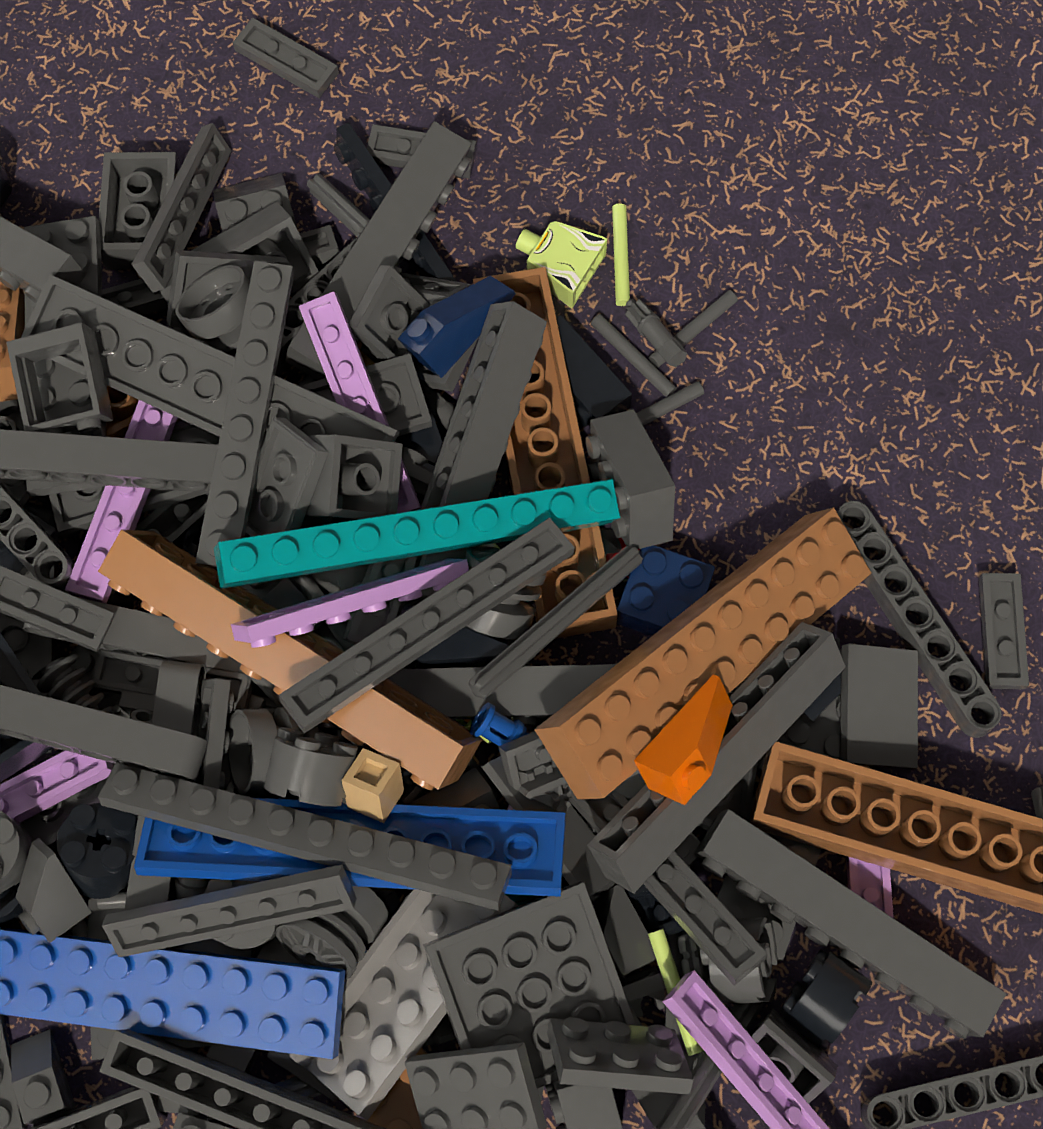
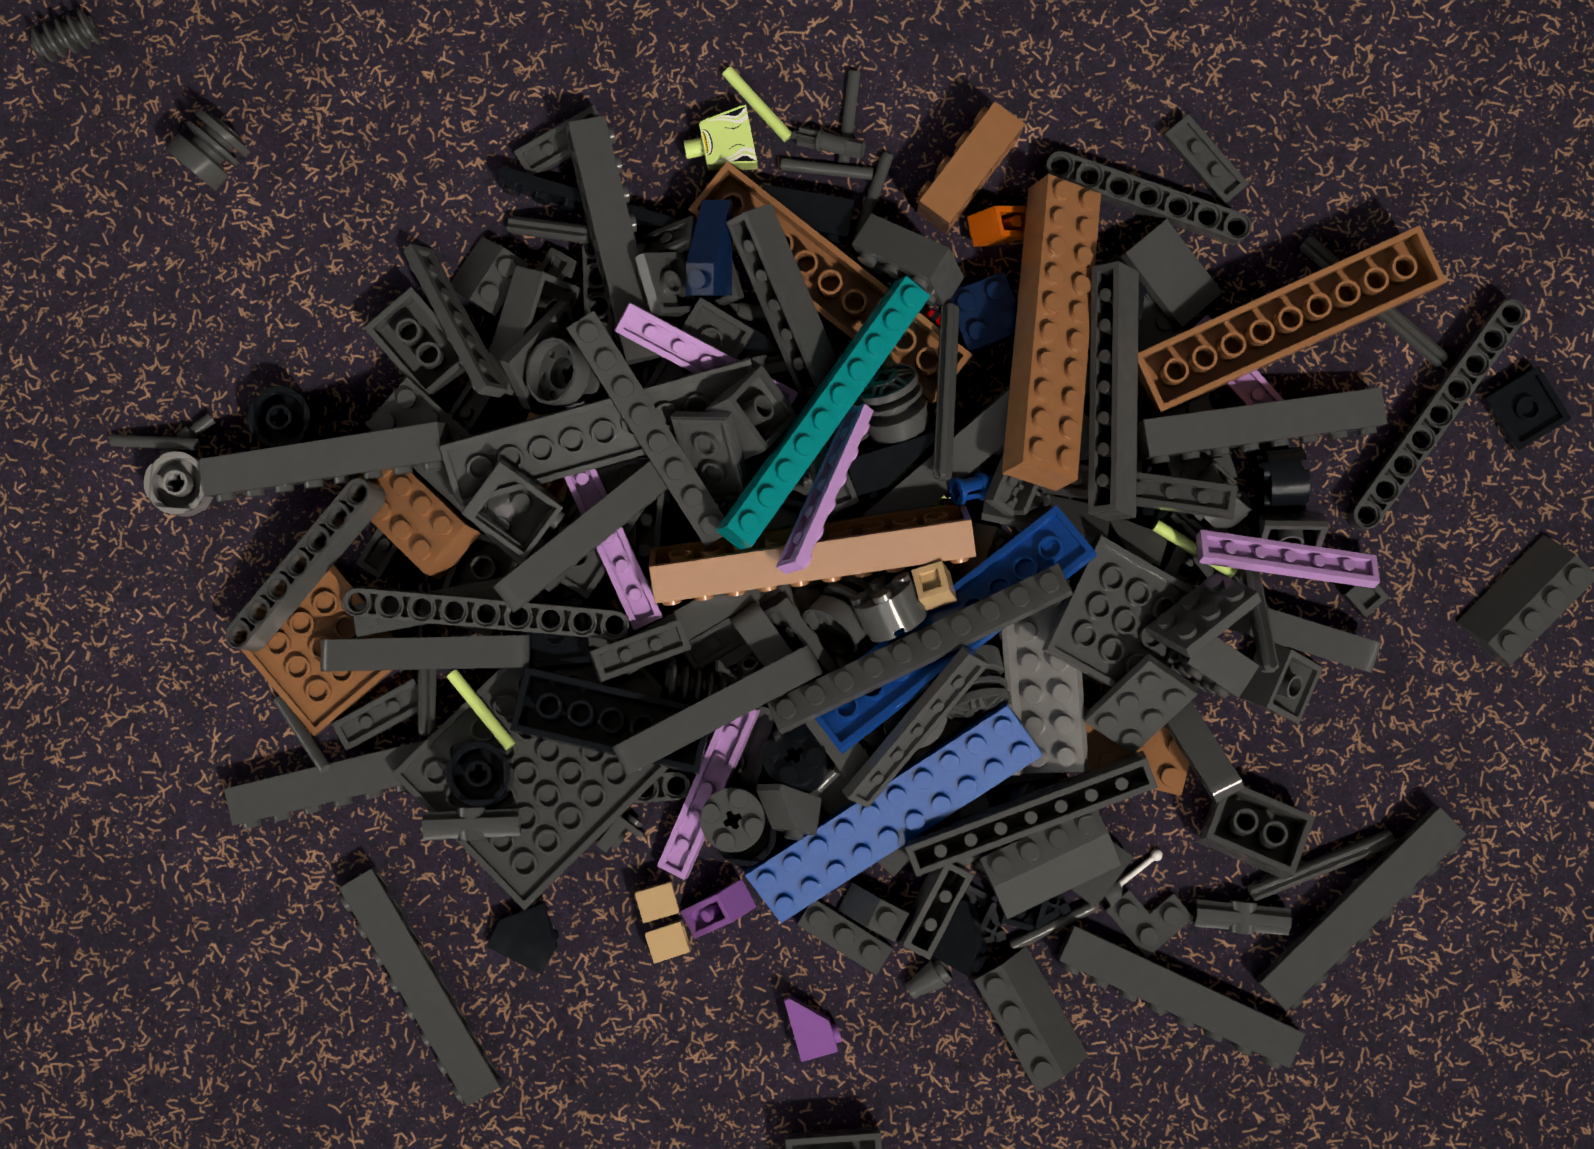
camera: 40 degrees left, 15 degrees up
(285, 58) = (407, 151): dark grey plate -> none
(425, 625) = (886, 464): dark grey plate -> none
(688, 746) = (1099, 412): orange slope -> none
(745, 523) = (997, 225): none -> orange slope
(764, 450) = (973, 163): none -> medium nougat brick

